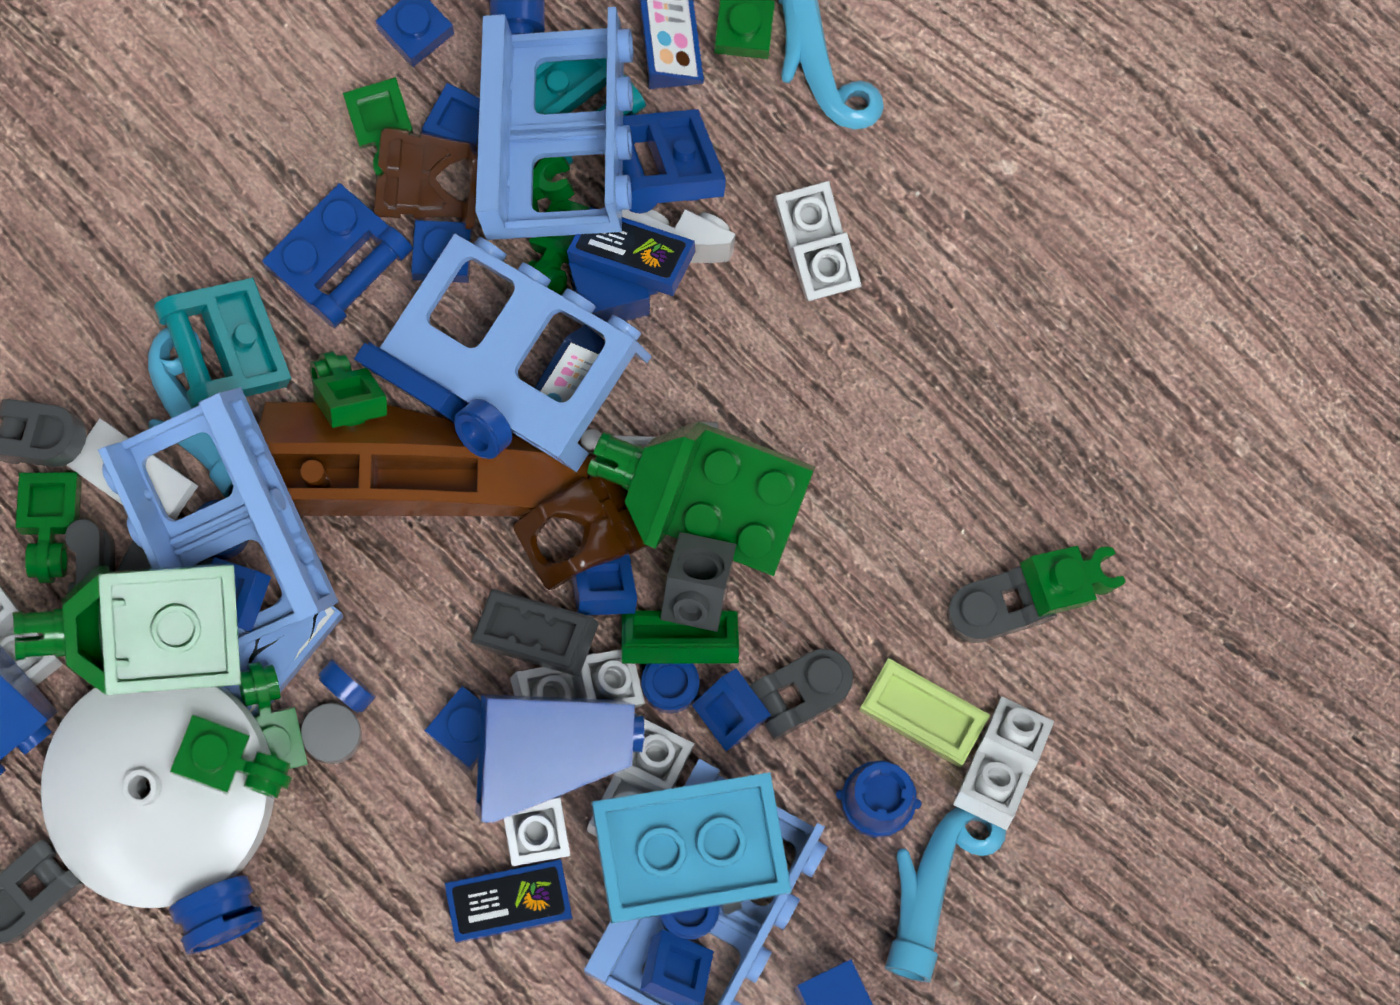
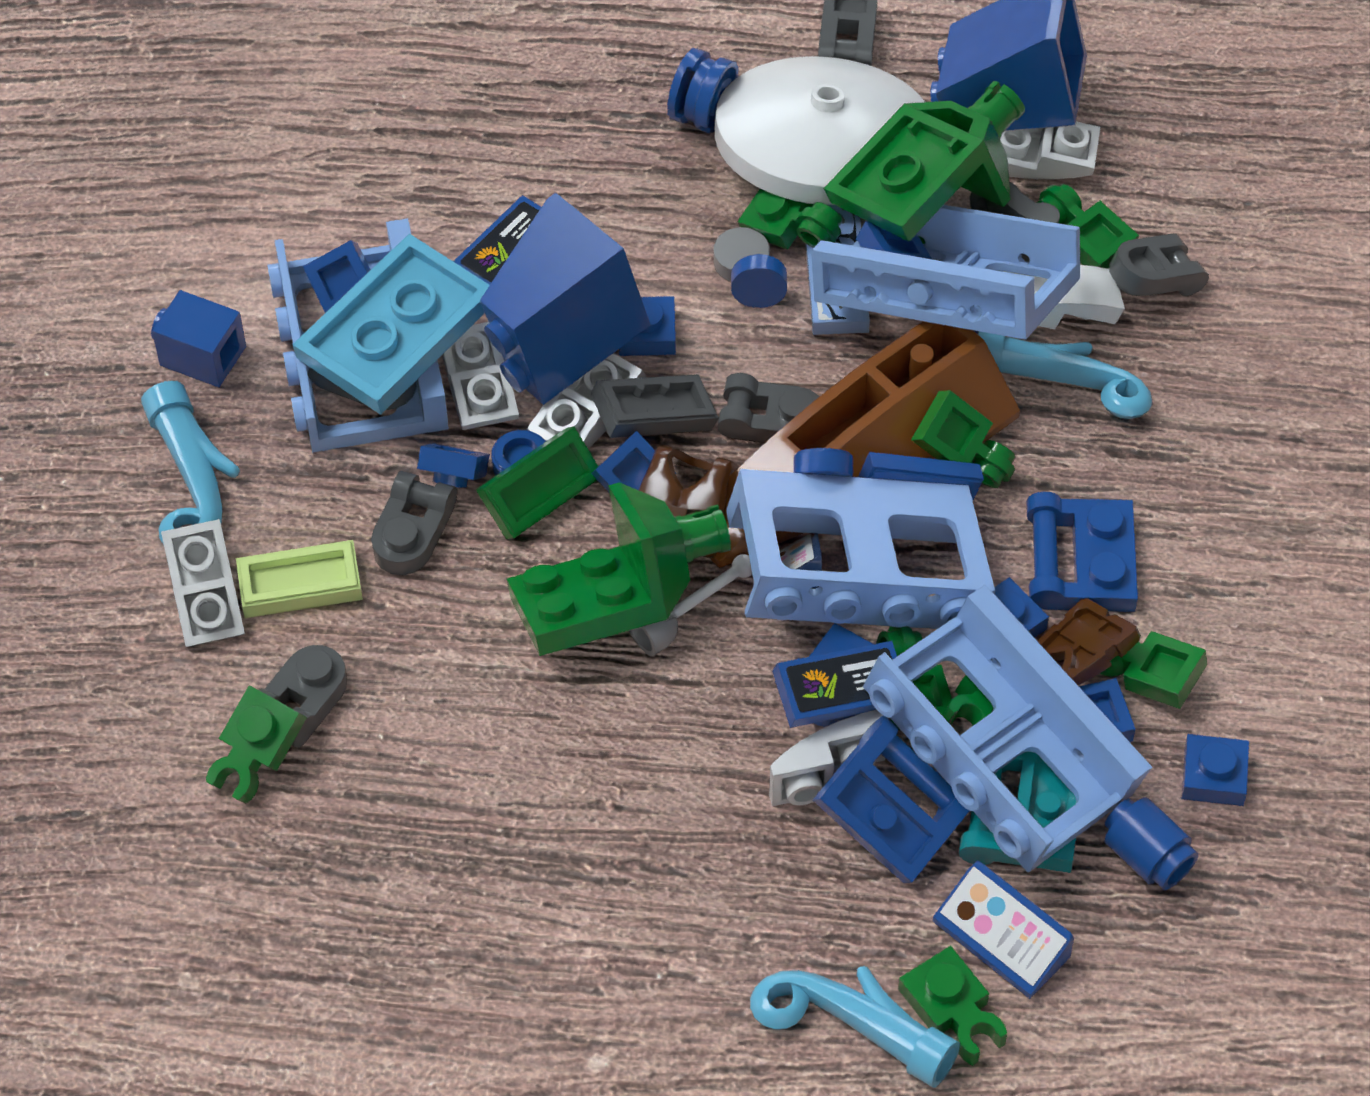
camera: 145 degrees right, 20 degrees down
(214, 754) = (791, 135): green plate -> none
(239, 336) = (1085, 433): teal plate -> none
(432, 550) = (779, 401): none -> dark grey plate
(698, 581) = (582, 521): dark grey brick -> none
(817, 241) = (703, 858): white slope -> none
(878, 799) = (283, 489): blue piece -> none

